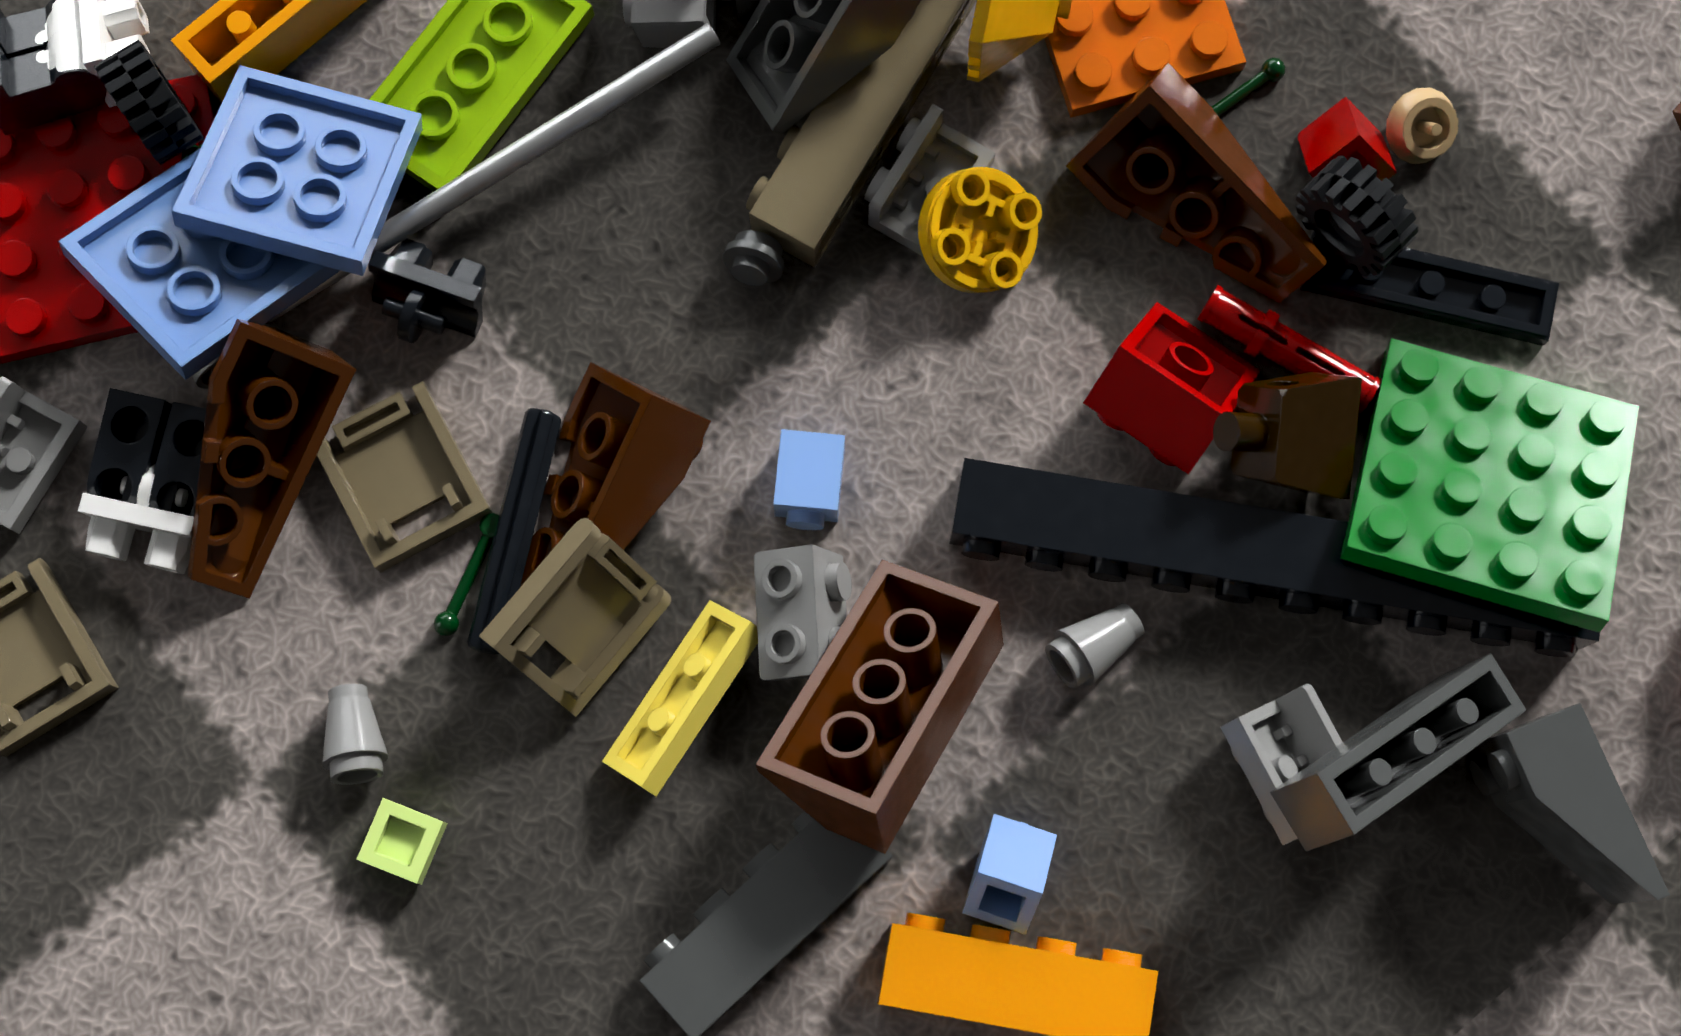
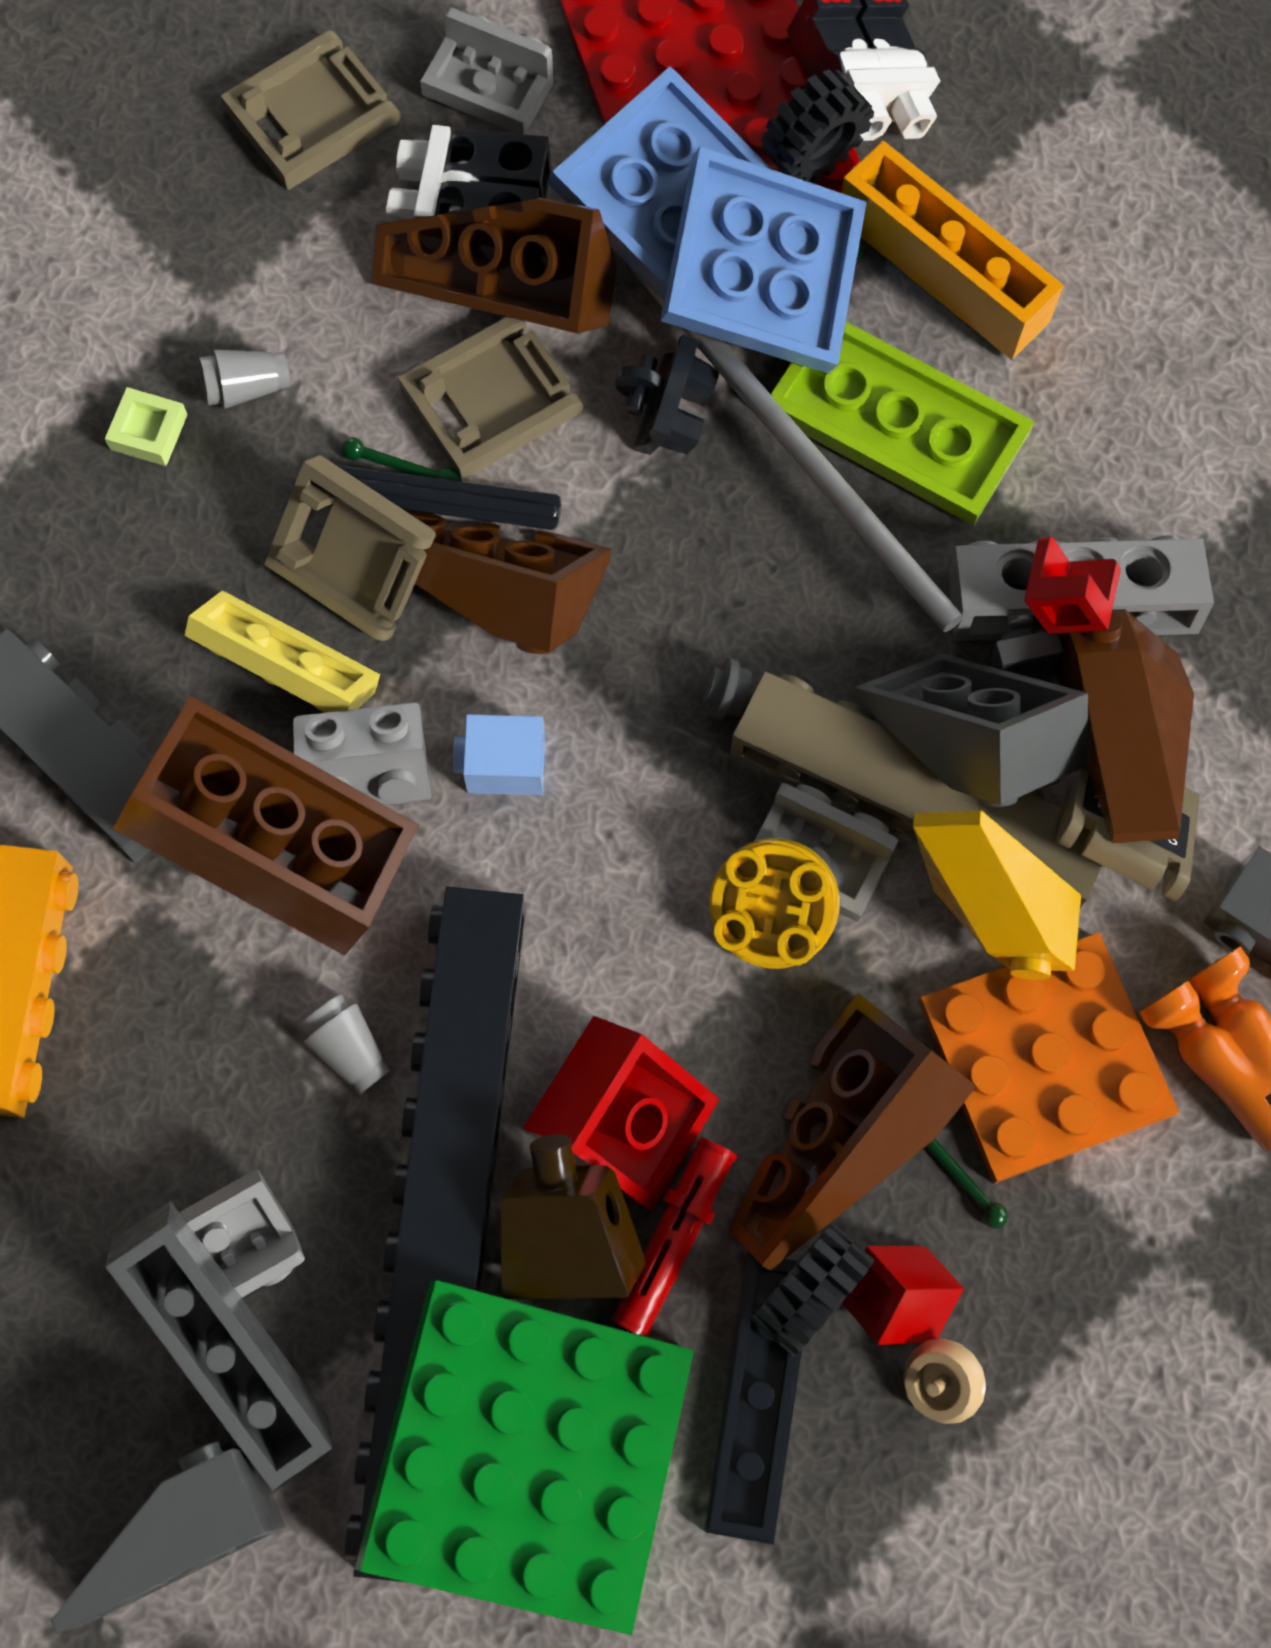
camera: 85 degrees right, 5 degrees down
(1010, 874) = (109, 964): light blue brick -> none

